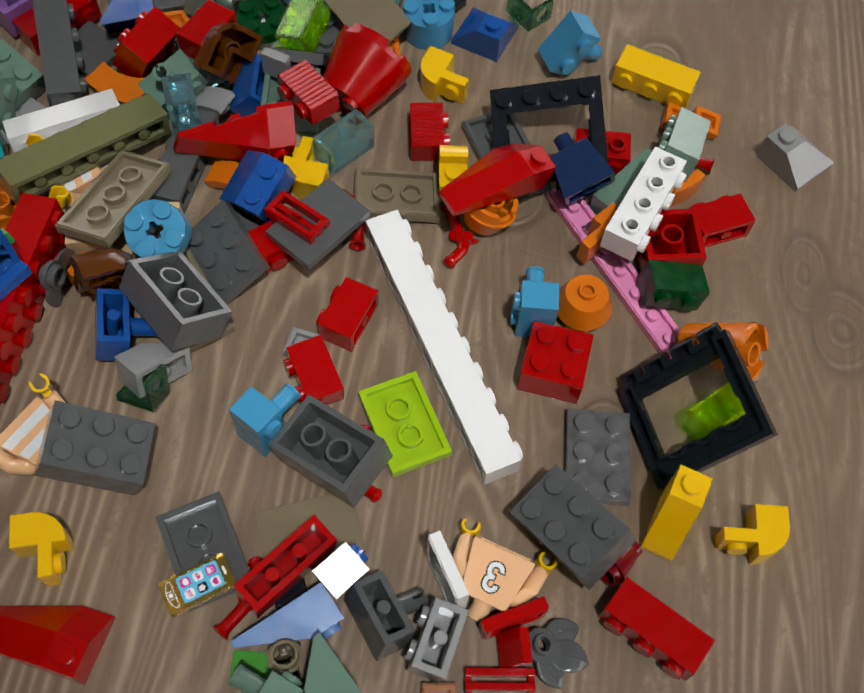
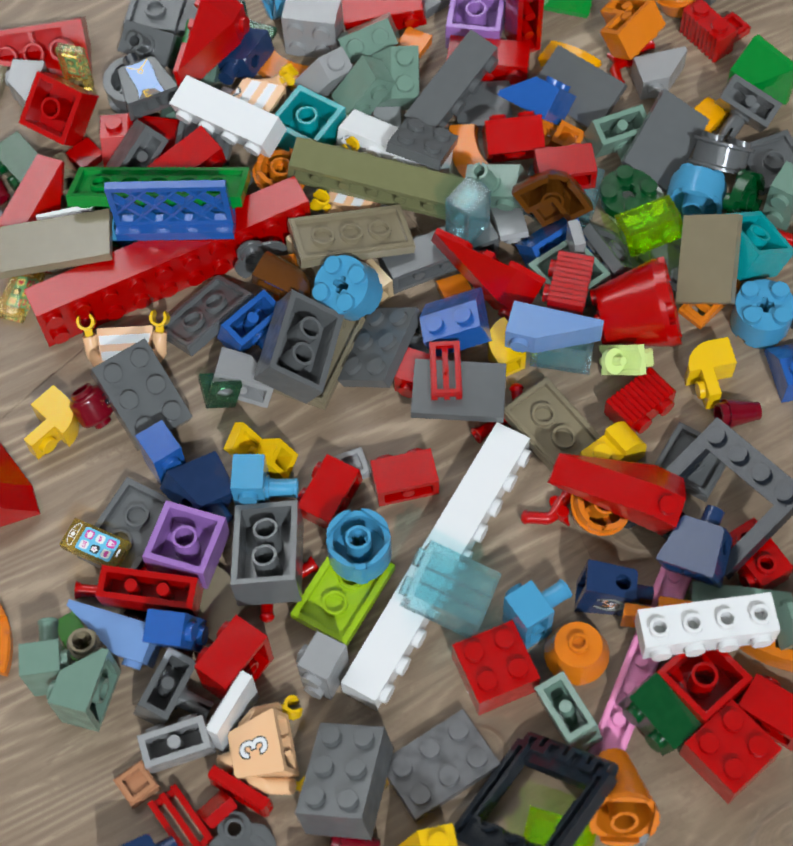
camera: 60 degrees right, 0 degrees up
(60, 499) = (90, 406): none -> dark red head
(67, 351) = (202, 315): none -> dark grey tile
(87, 97) = (422, 143): none -> dark grey plate
(167, 470) = (160, 450): none -> brick
(218, 400) = (278, 455): none -> yellow brick
(225, 464) = (200, 485): none -> dark blue torso
(267, 506) = (186, 542): none -> medium lavender brick
(326, 133) = (546, 329): none -> medium blue slope
(386, 378) = (361, 561): none -> dark azure brick
(390, 112) = (625, 359): none -> yellowish green hips
(404, 542) = (235, 650): none -> red brick
(462, 477) = (322, 665): none -> light grey brick
(477, 341) = (449, 589): none -> clear light blue brick
(480, 89) = (737, 412): none -> dark red cone
(562, 240) = (606, 588): none -> dark blue torso
(630, 338) = (568, 712): none -> sand green brick
(734, 265) = (730, 751): none -> red brick

